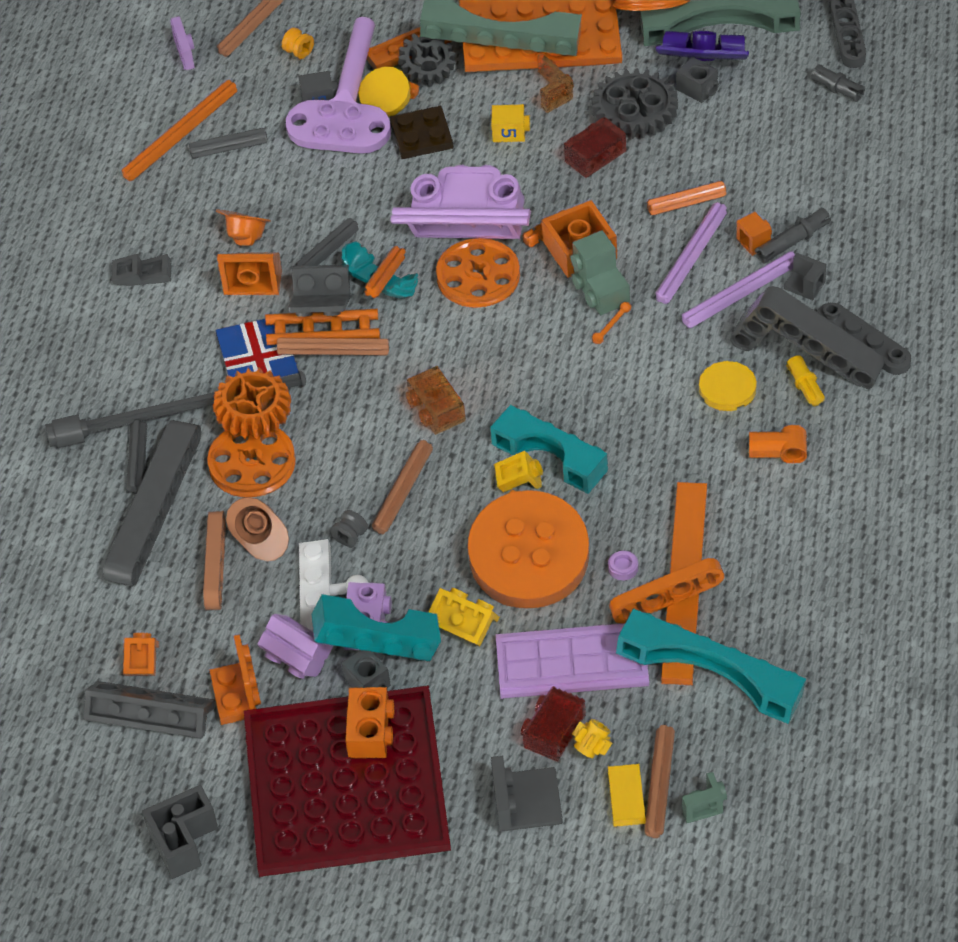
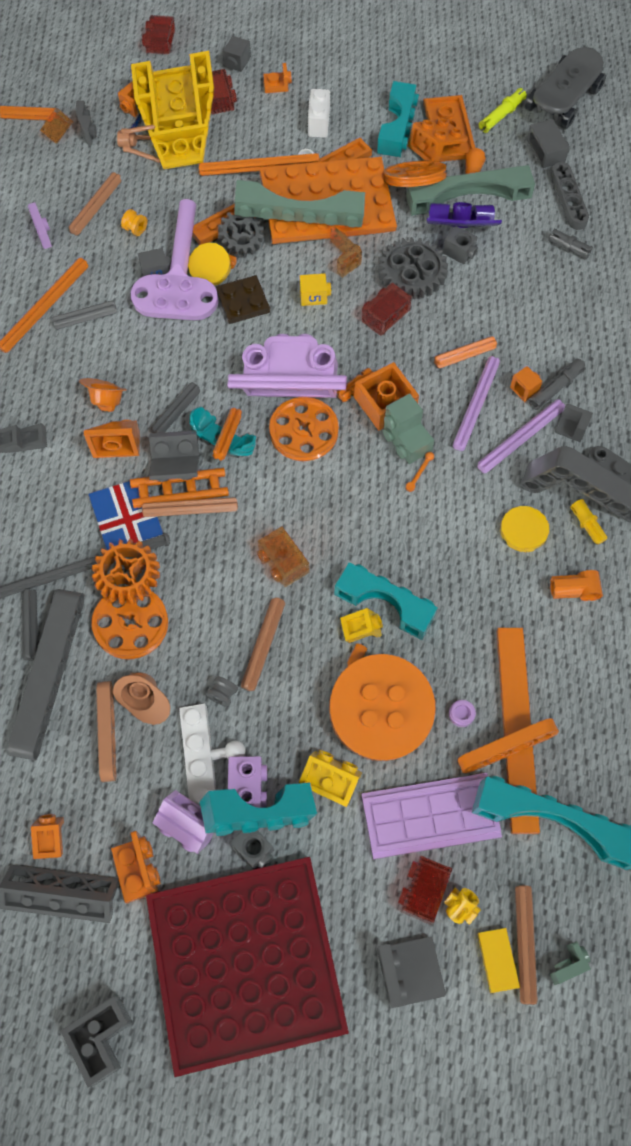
camera: 10 degrees left, 15 degrees up
(365, 722) = (255, 909): orange brick -> none

